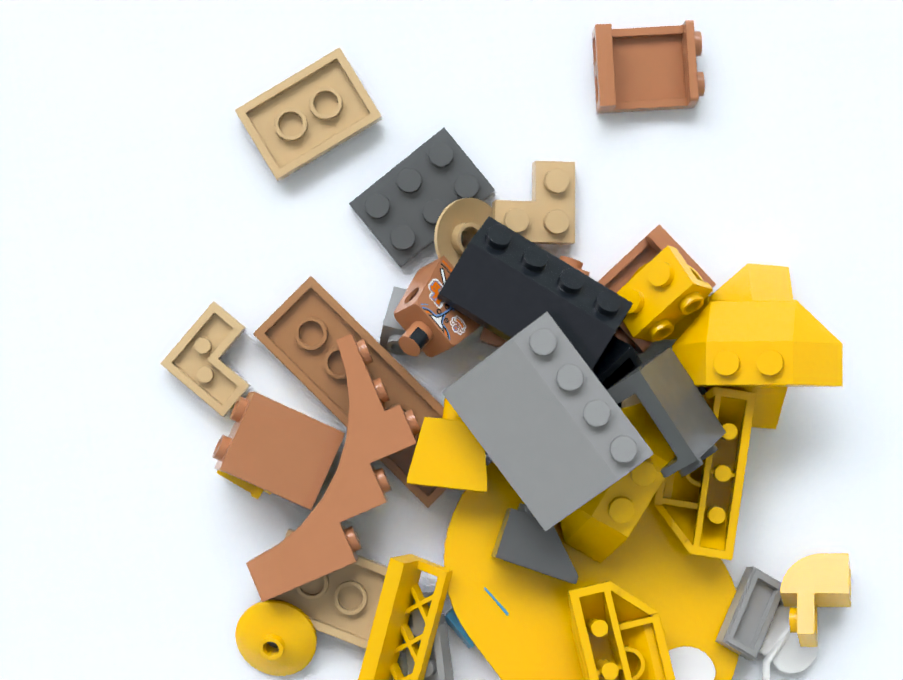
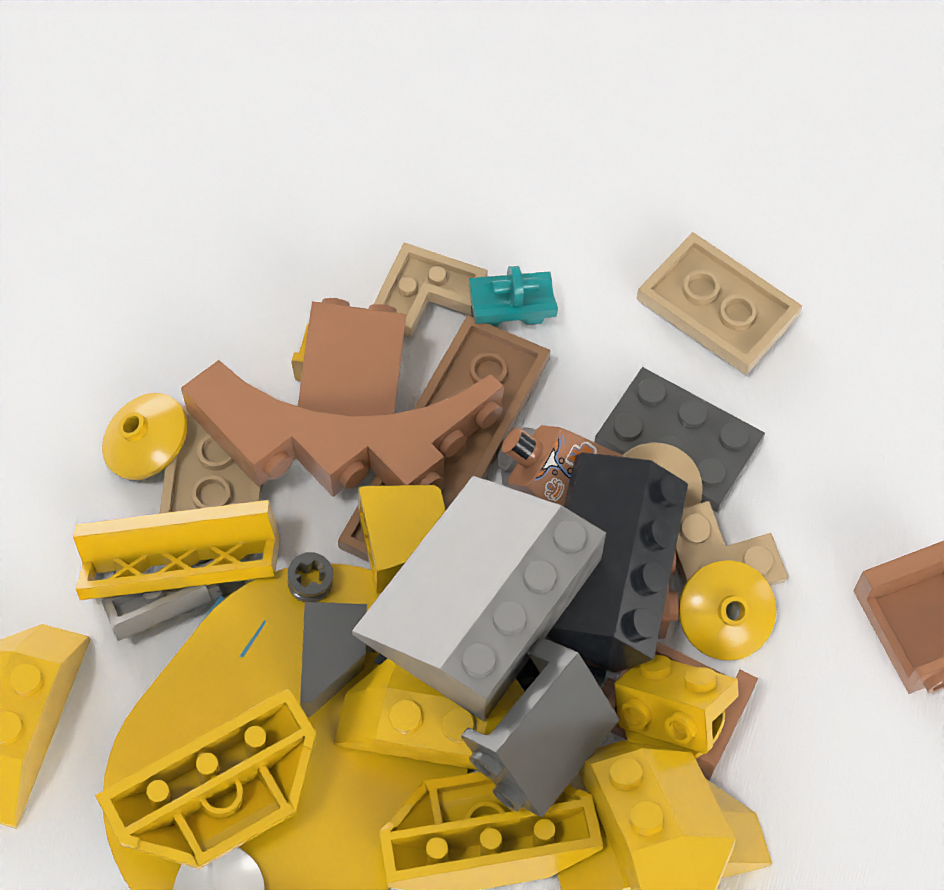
camera: 70 degrees right, 25 degrees down
(251, 289) = (513, 297): none -> teal hips
(475, 543) = (306, 563): none -> dark grey bush
(574, 226) = (704, 610): none -> yellow dish

